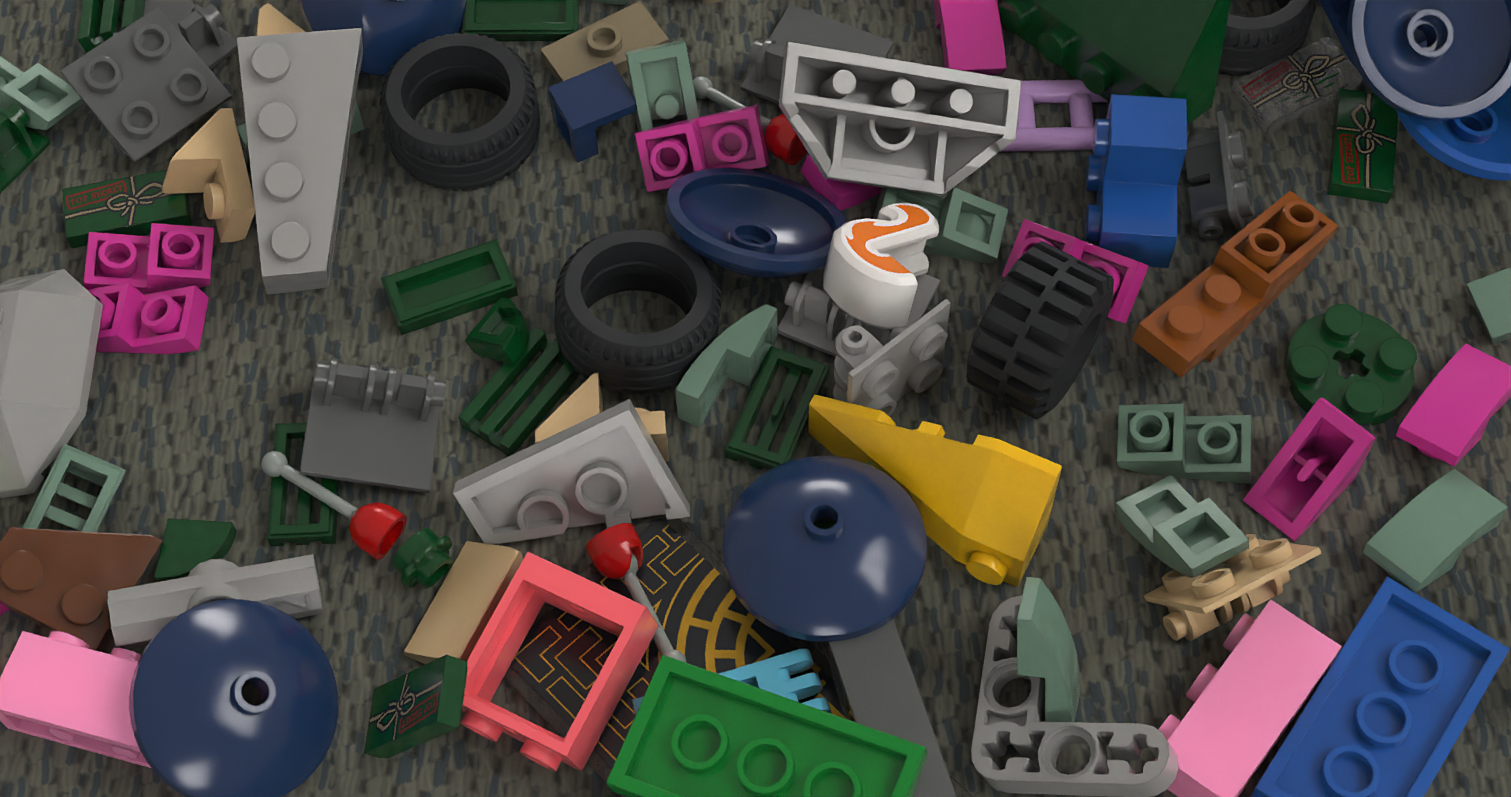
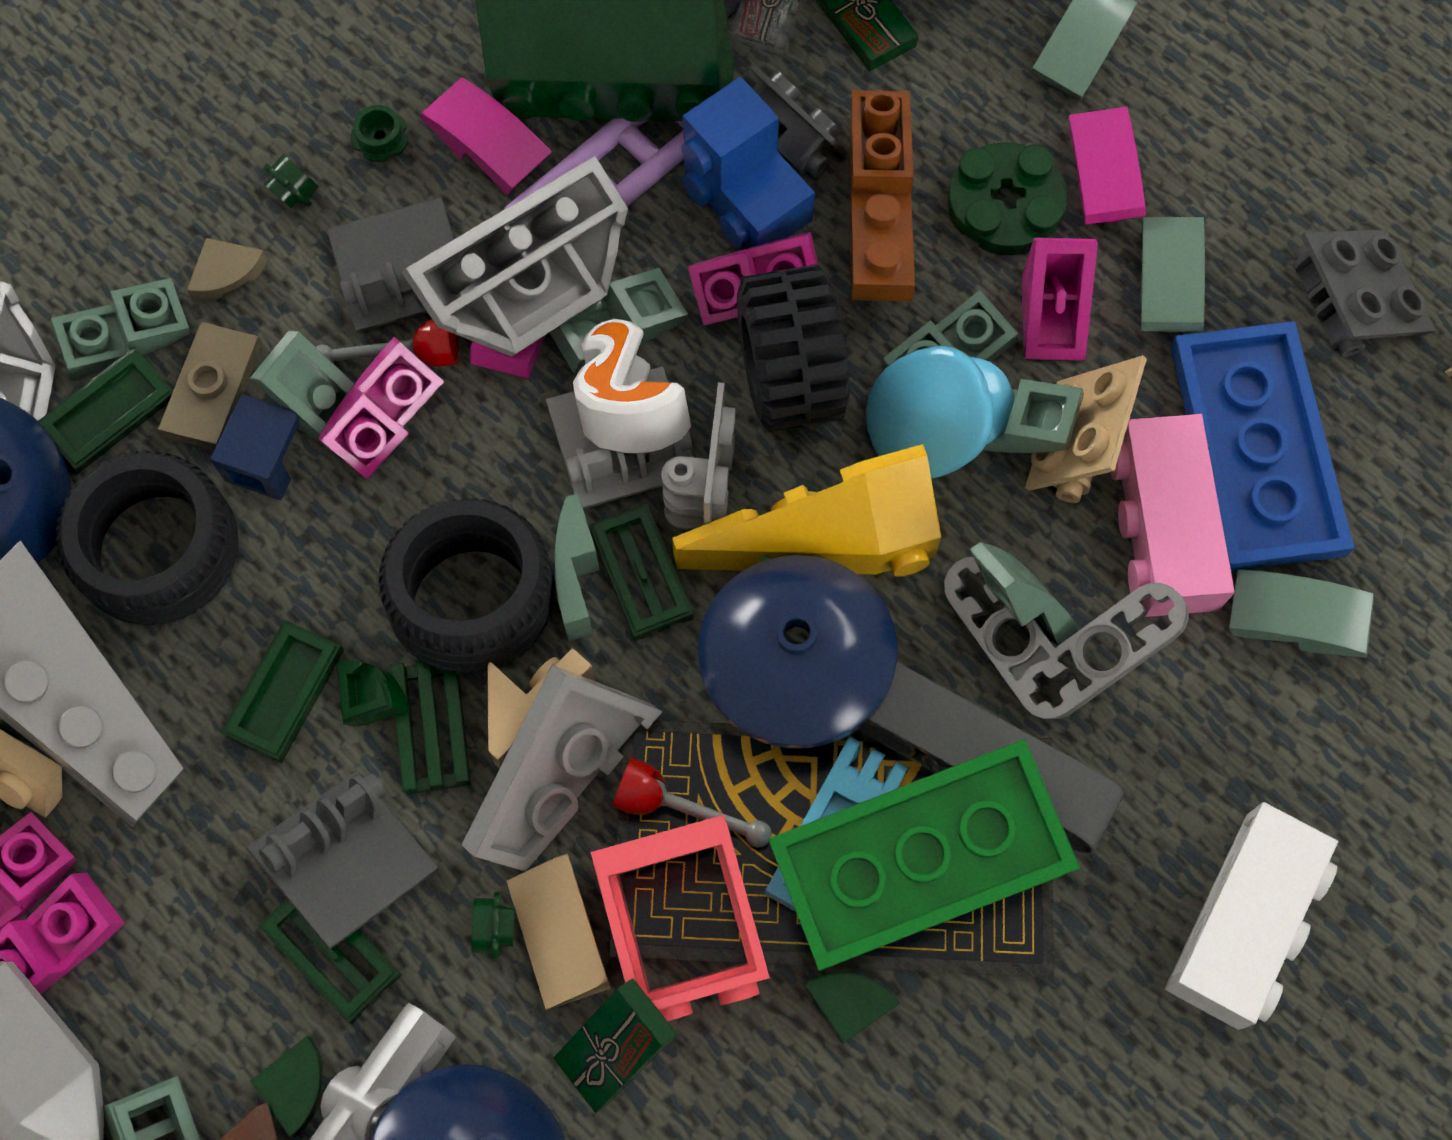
camera: 45 degrees left, 10 degrees up
(371, 527) = (423, 937): hinge -> none
(753, 221) = (489, 435): dark blue dish -> none
(1123, 472) = (939, 401): none -> medium azure piece

